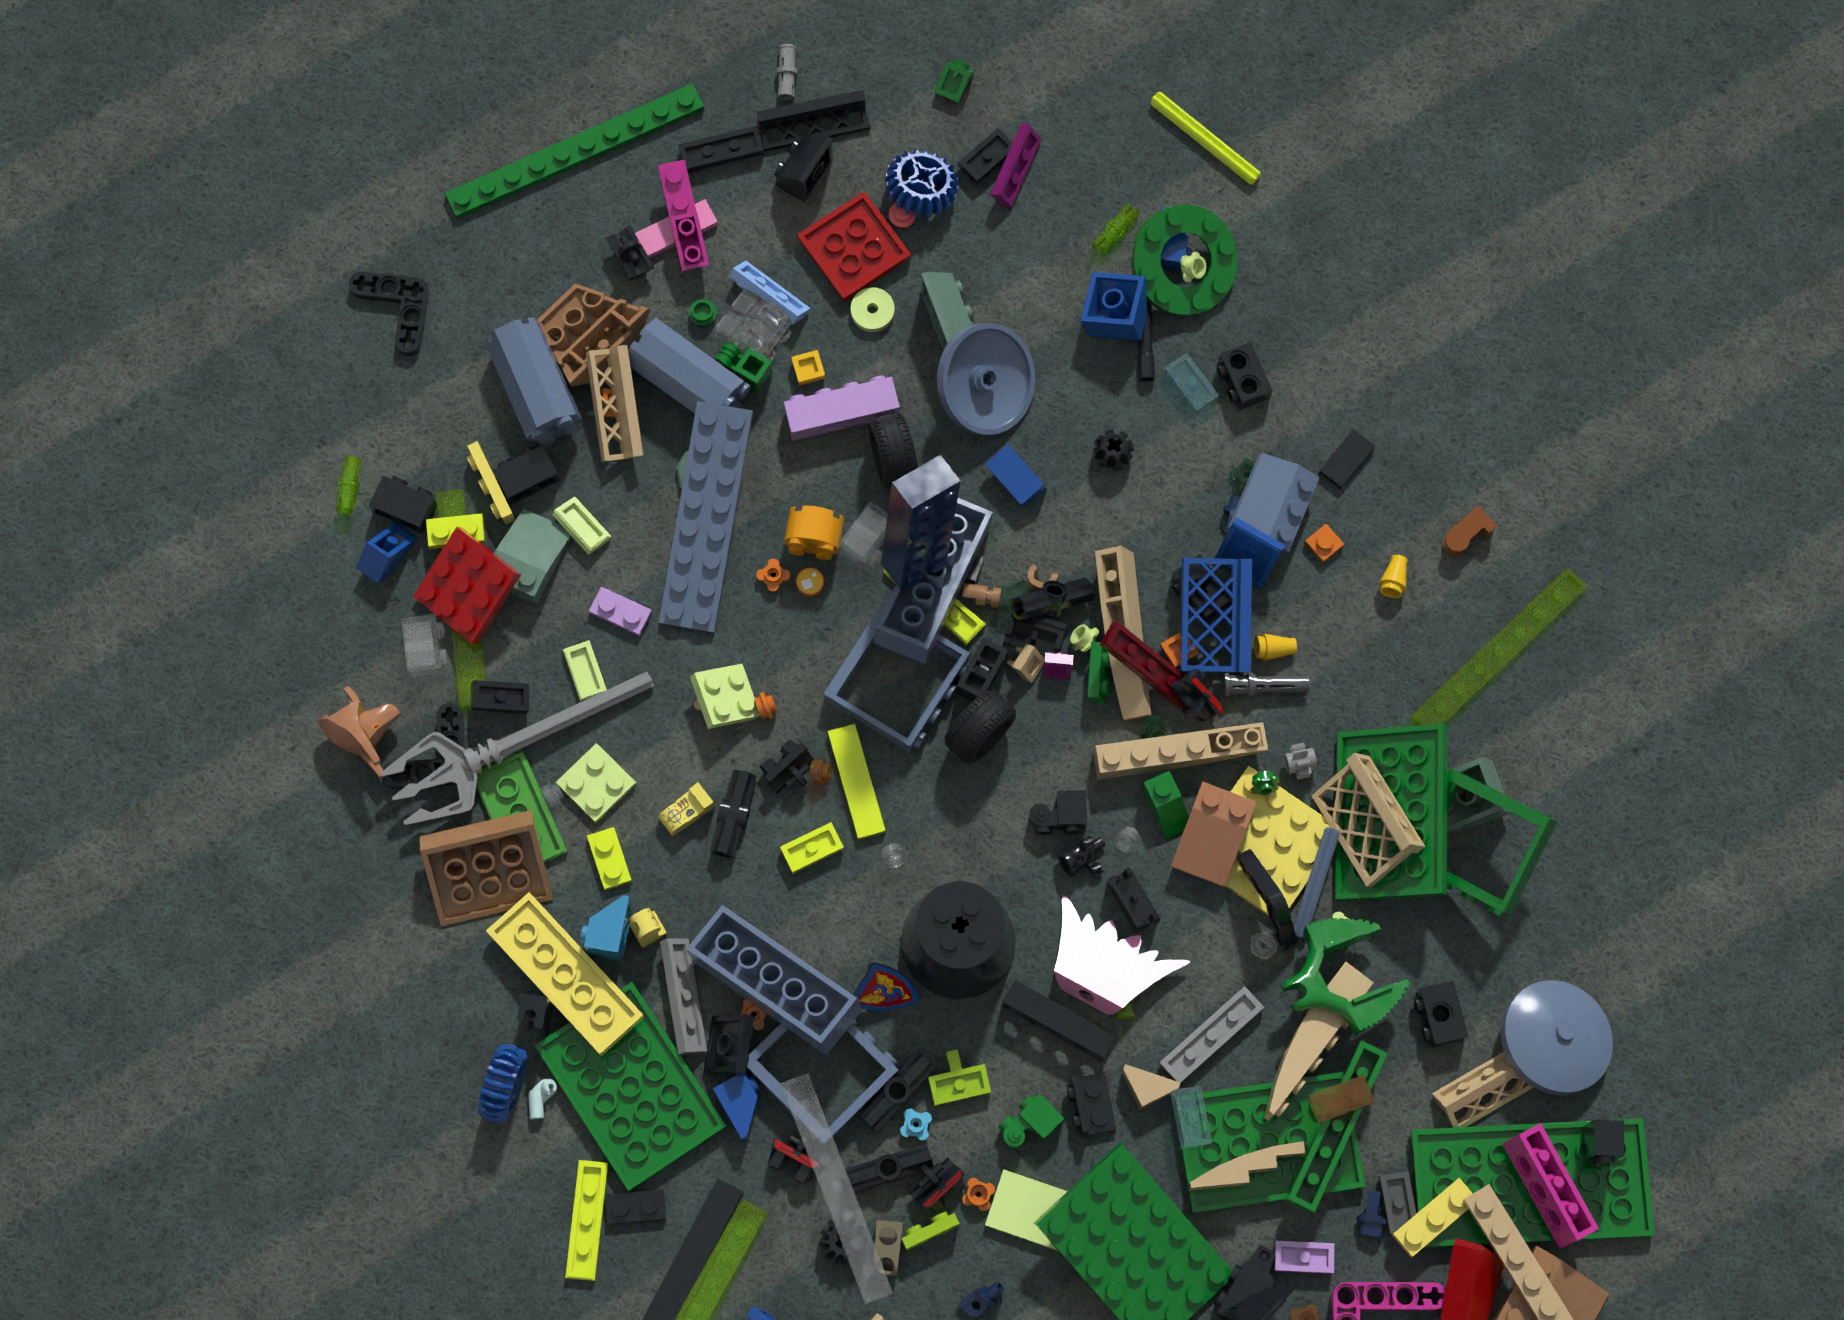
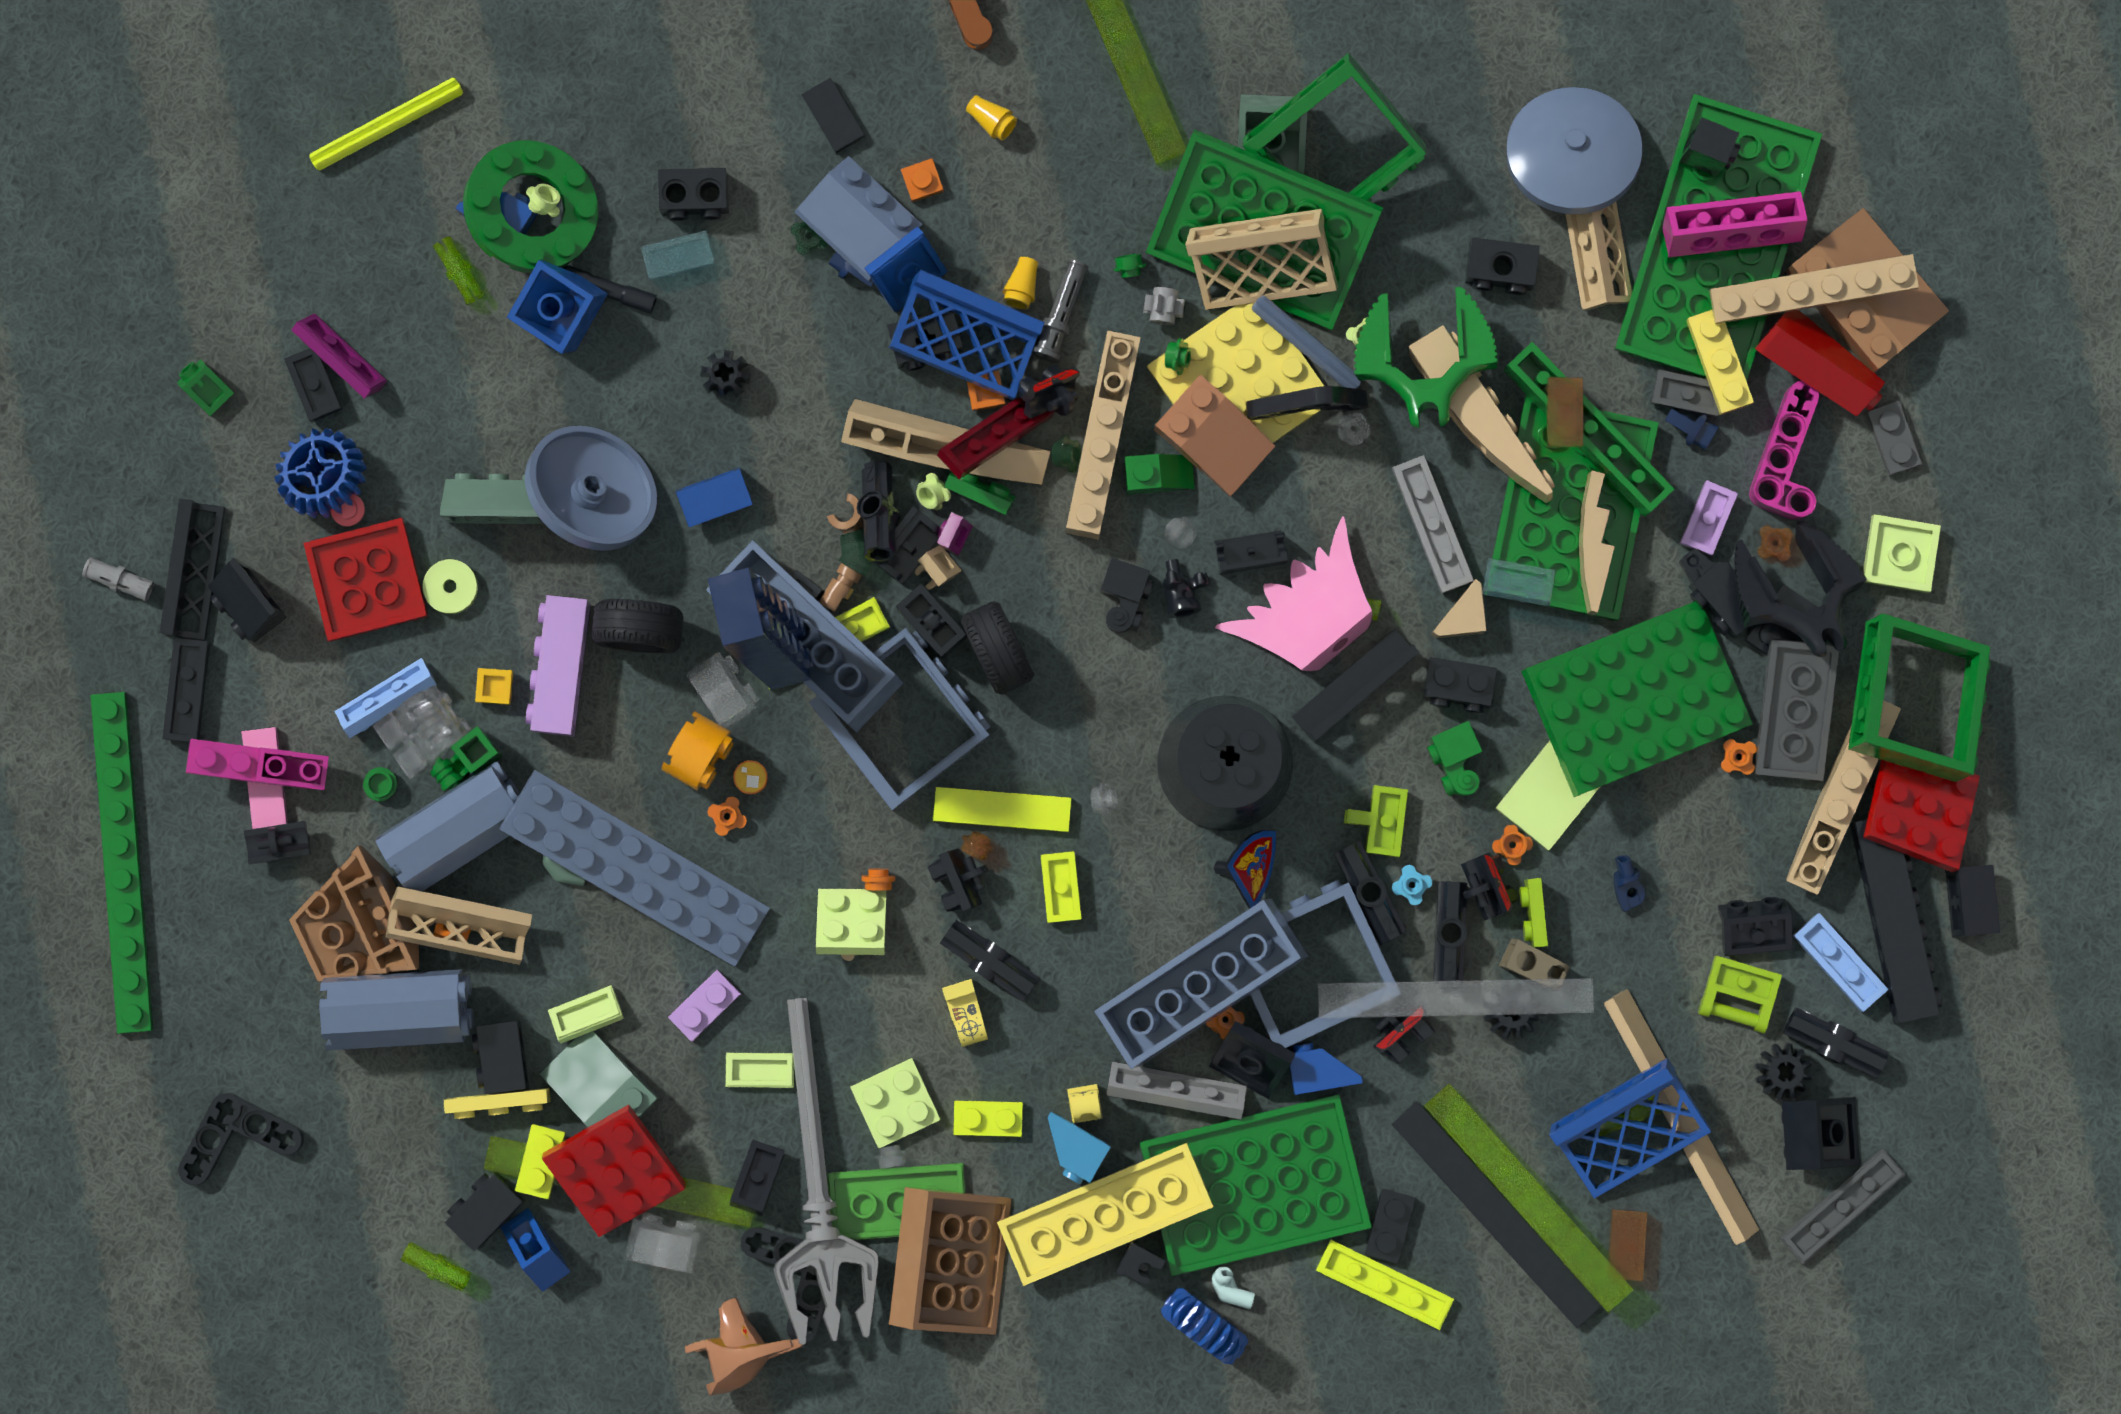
camera: 70 degrees left, 10 degrees up
(1322, 723) = (1129, 265): none -> green plate

